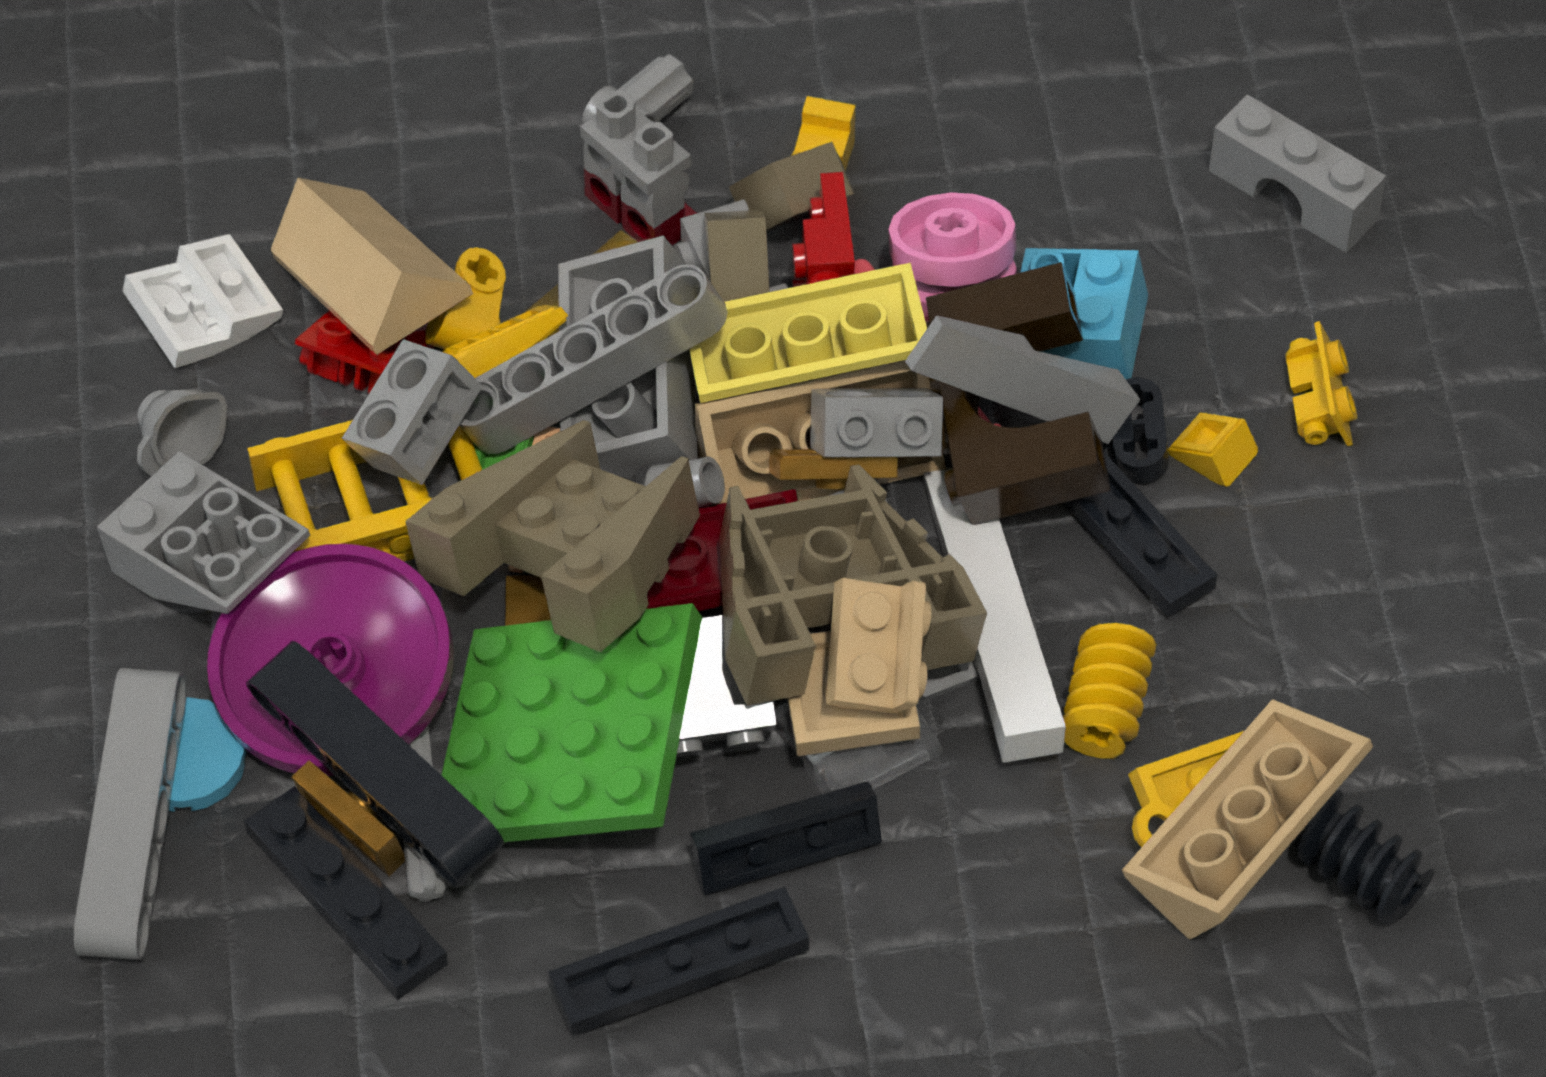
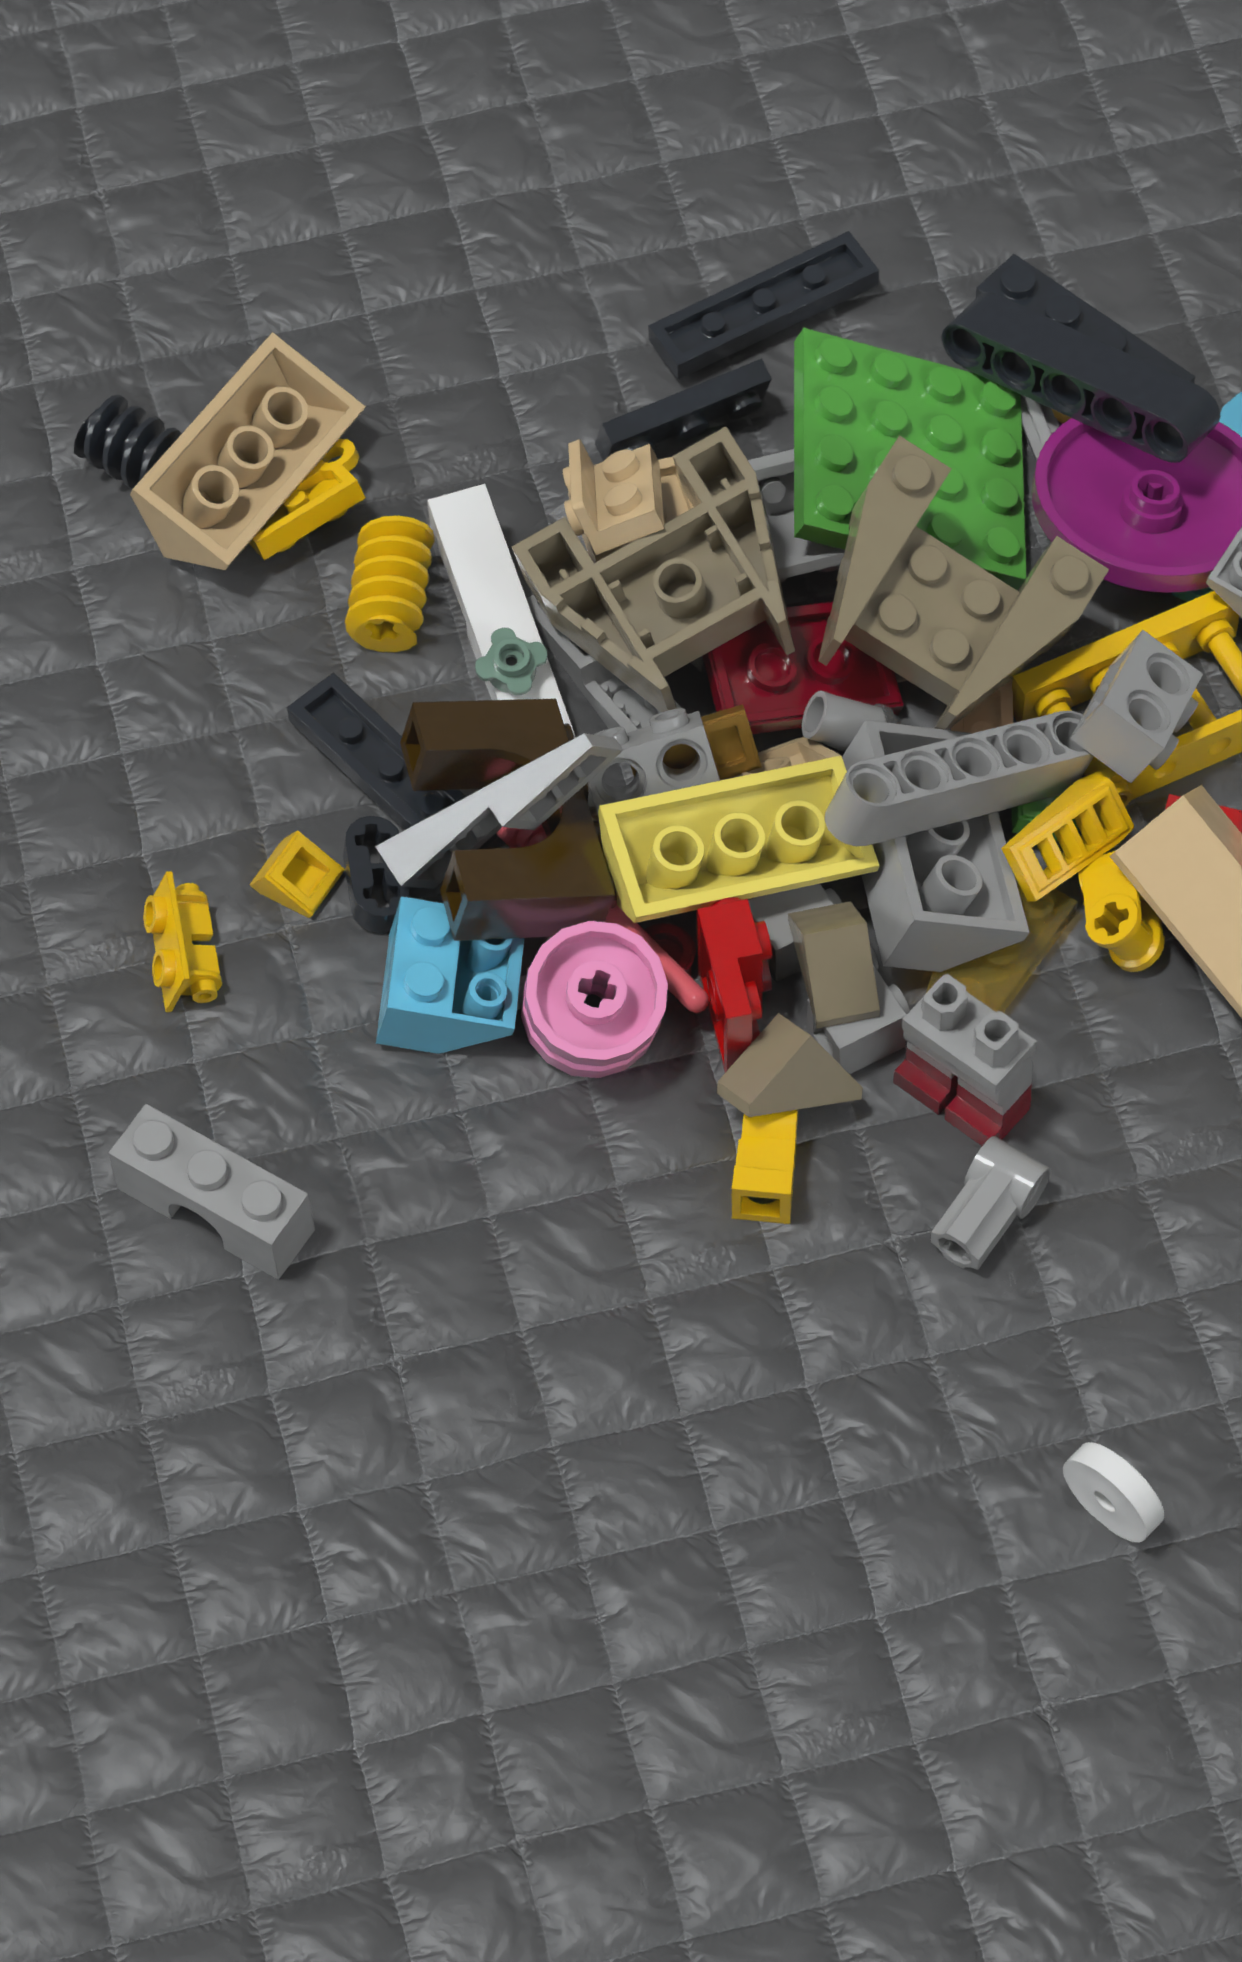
camera: 175 degrees right, 5 degrees up
(996, 567) = (507, 678): none -> sand green plate

